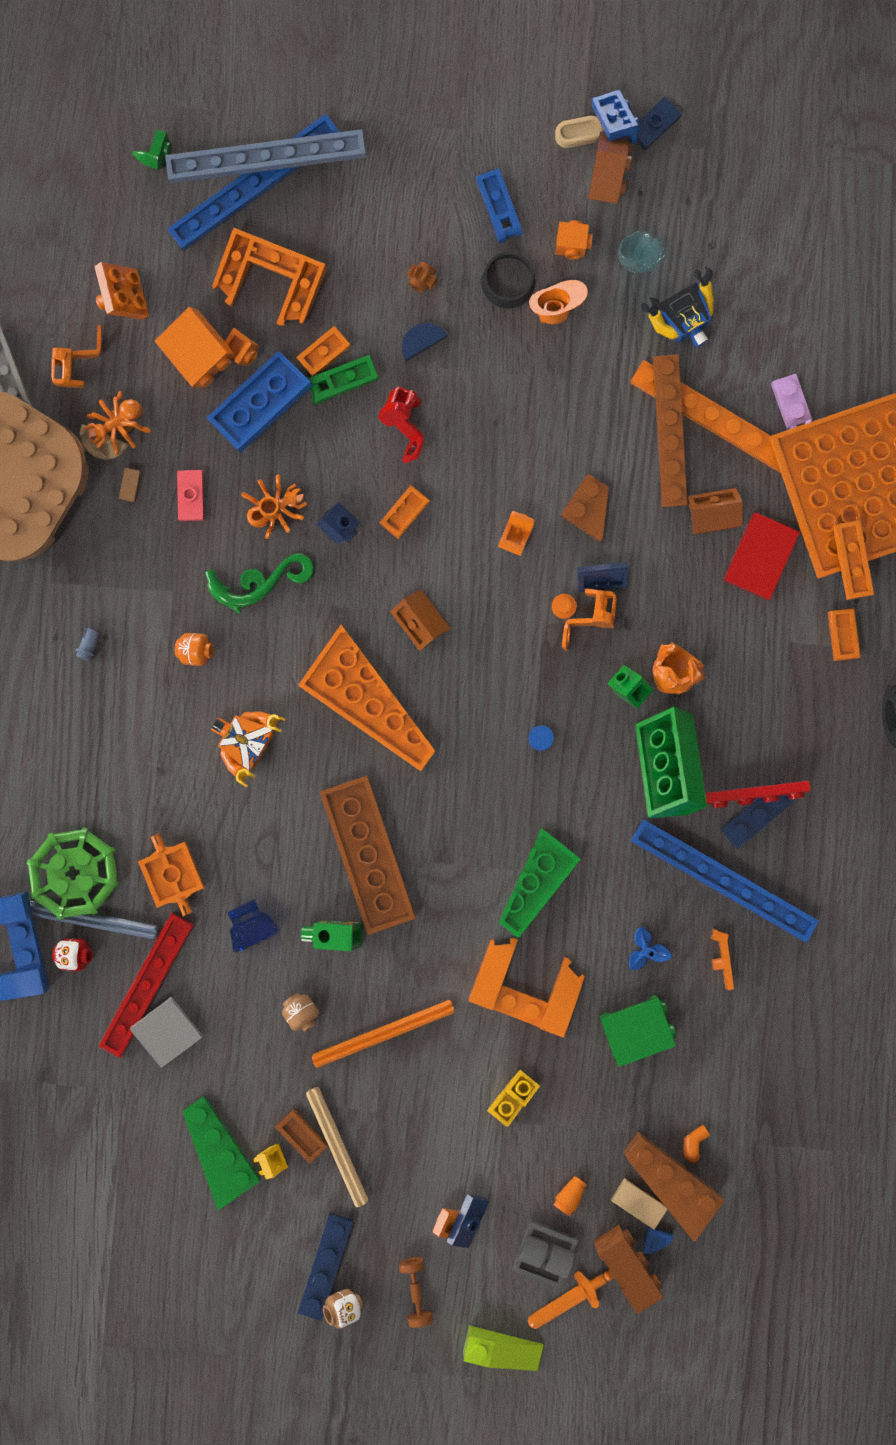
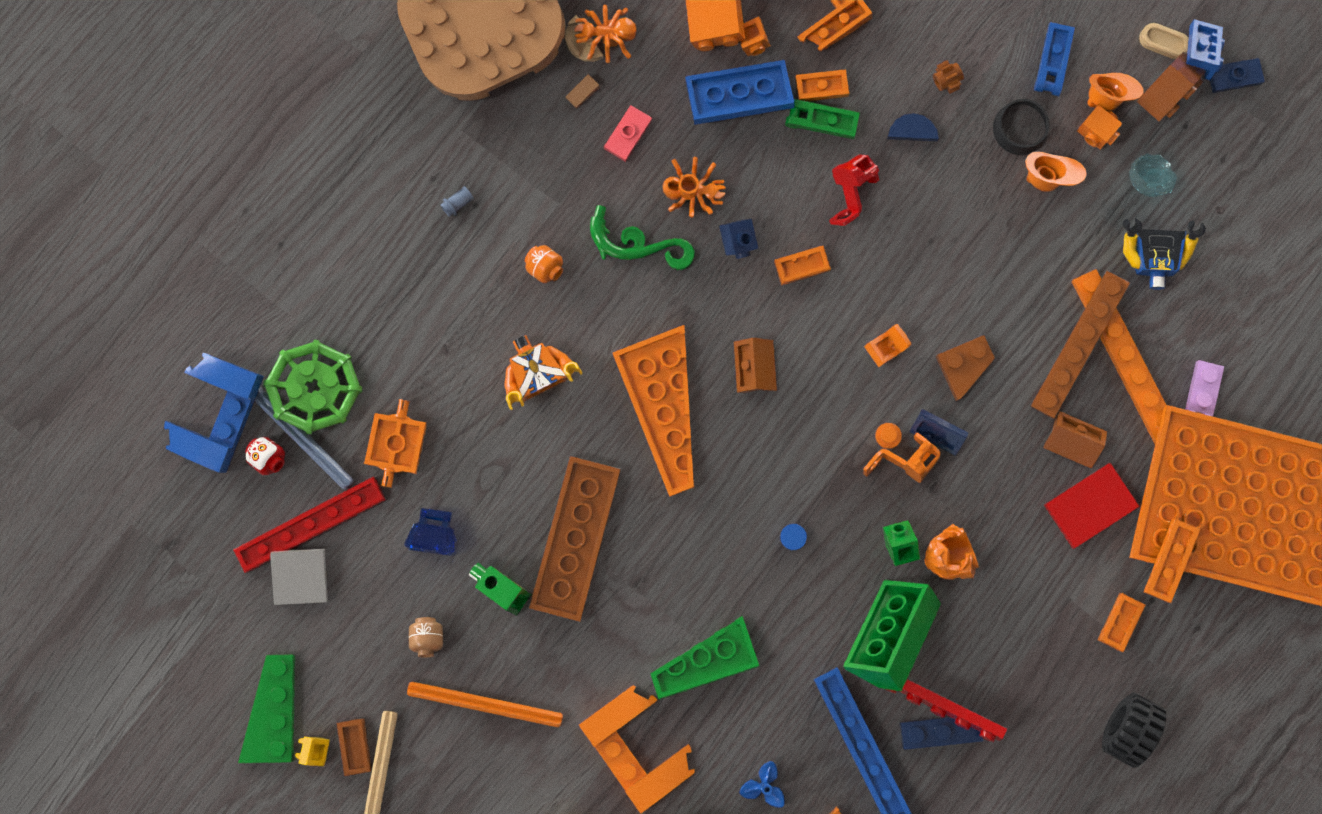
camera: 30 degrees right, 5 degrees down
(562, 201) = (1112, 90): none -> orange piece

